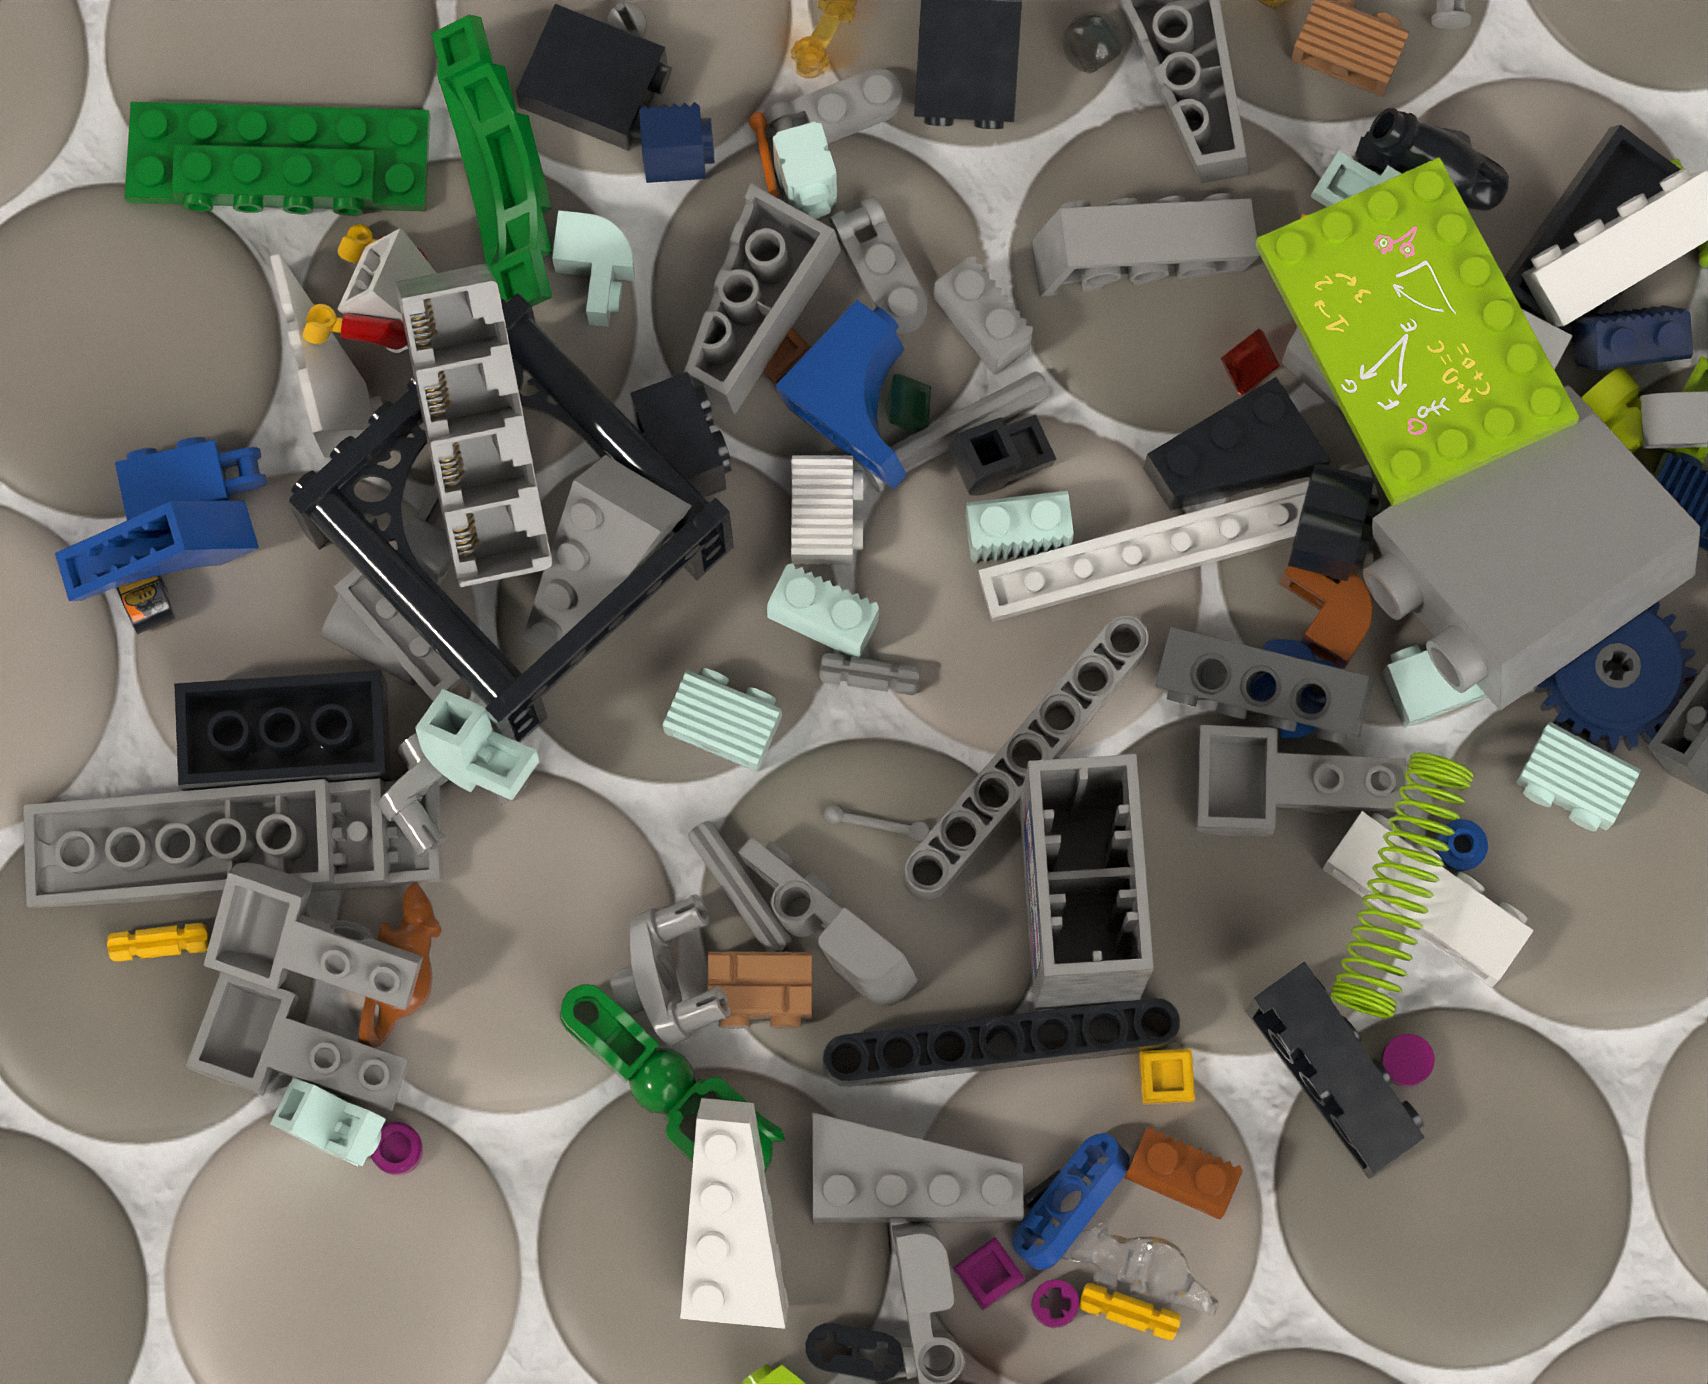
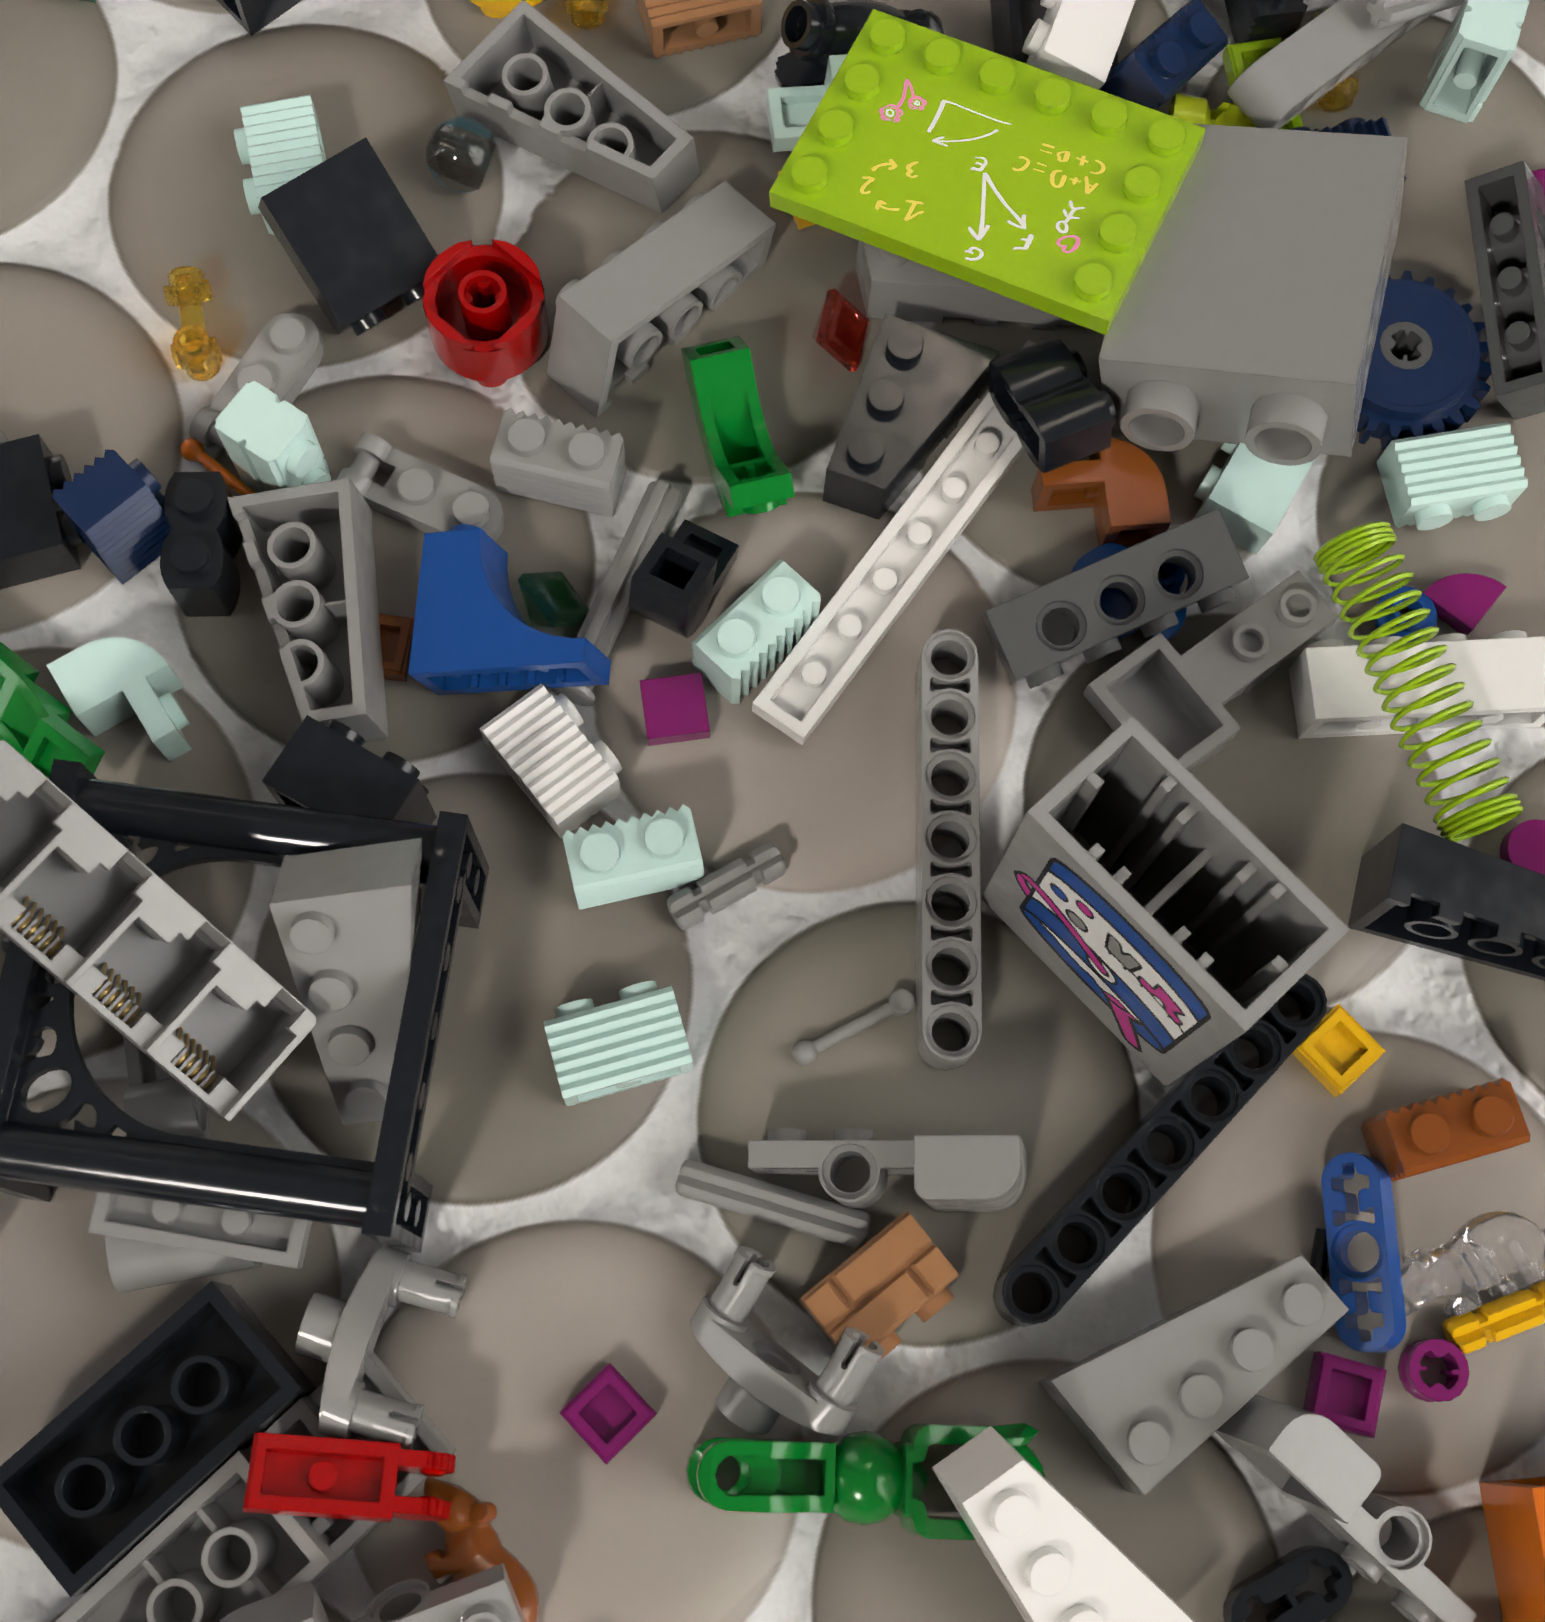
camera: 45 degrees left, 5 degrees down
(370, 840) = (340, 1478): none -> red hinge
(466, 751) = (372, 1292): light aqua brick -> none
(546, 931) = (608, 1413): none -> magenta tile
(704, 206) = (201, 545): none -> black brick
(929, 535) = (674, 709): none -> magenta tile
(1041, 157) = (486, 310): none -> red brick
(1116, 378) = (733, 428): none -> green arch
(1513, 865) = (1464, 599): none -> magenta tile

